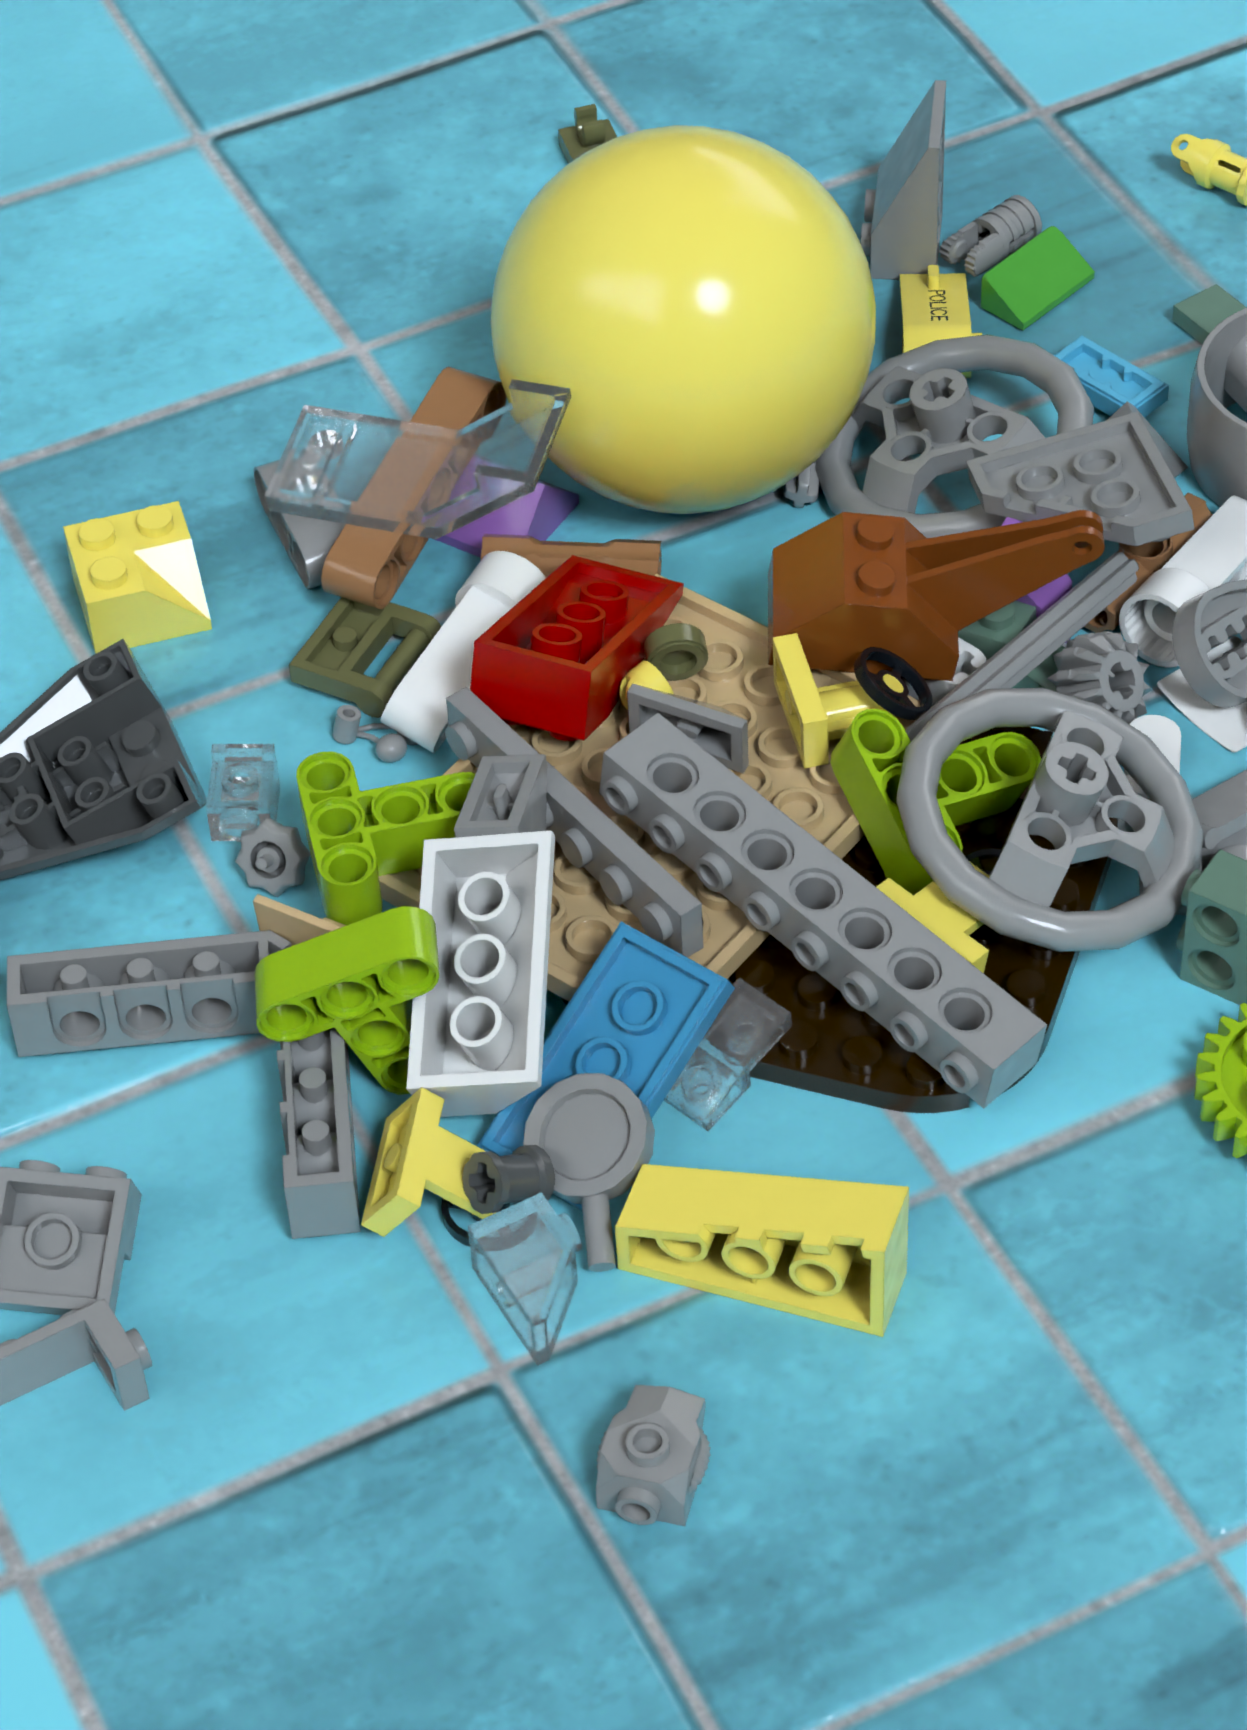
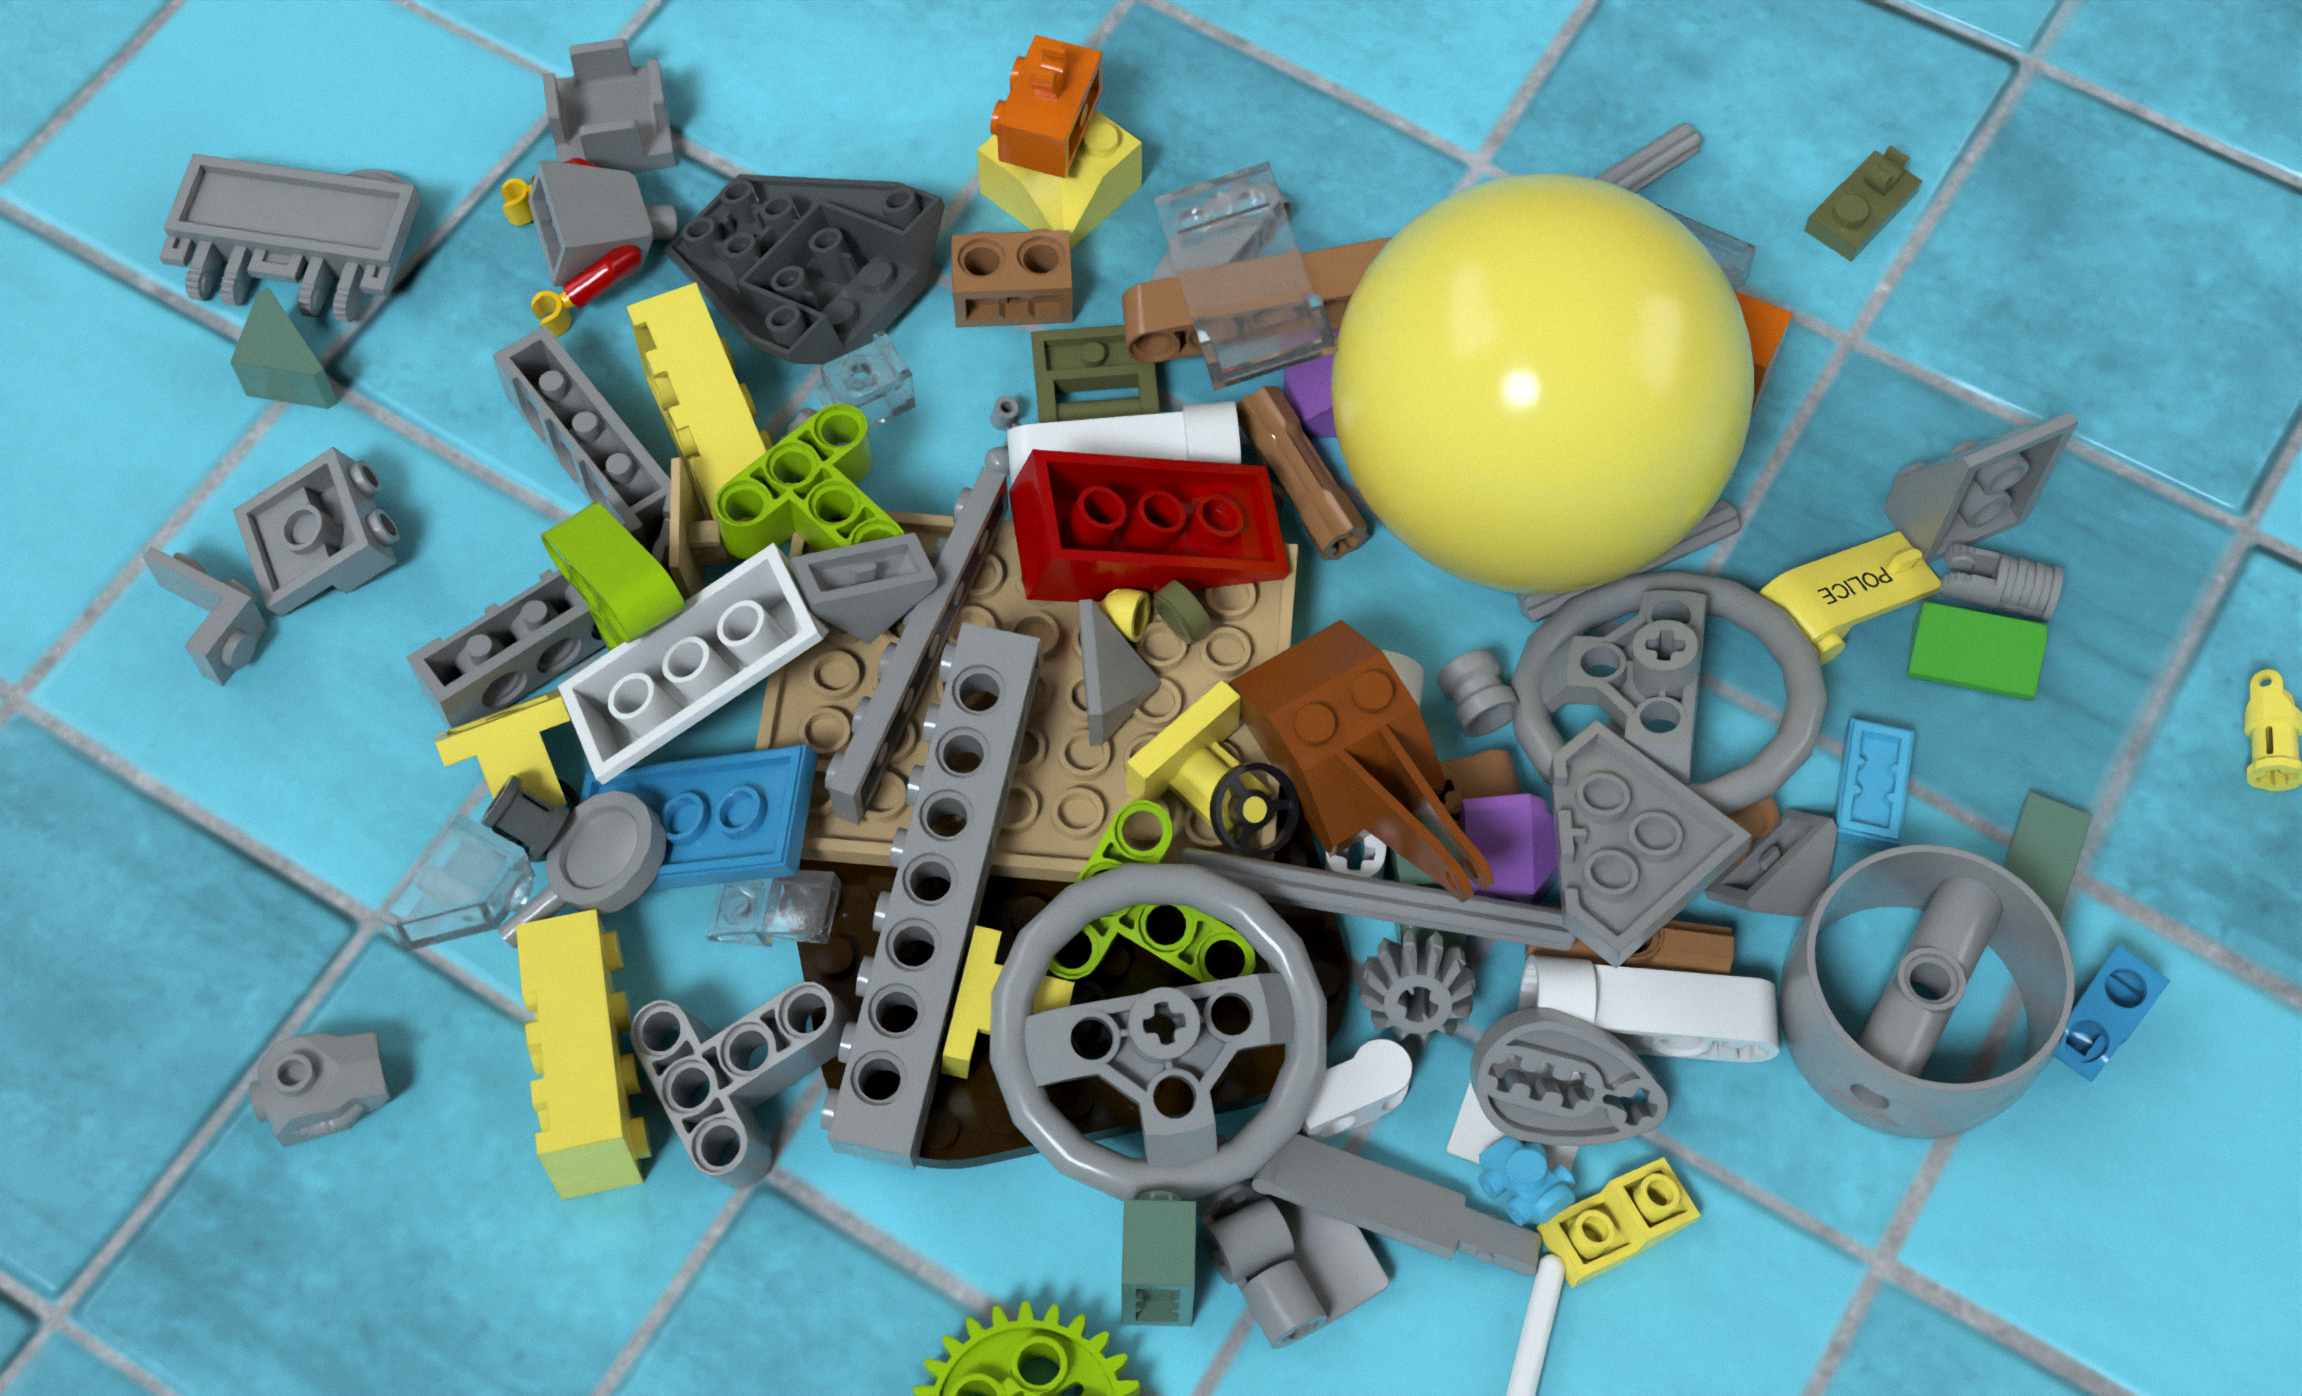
camera: 55 degrees right, 15 degrees up
(108, 520) = (1048, 105): none -> orange brick
(161, 887) = (697, 392): none -> light yellow wedge
(220, 657) = (1023, 279): none -> medium nougat brick
(455, 267) = (1654, 158): none -> light grey axle
(874, 1142) = (725, 1063): none -> light grey beam

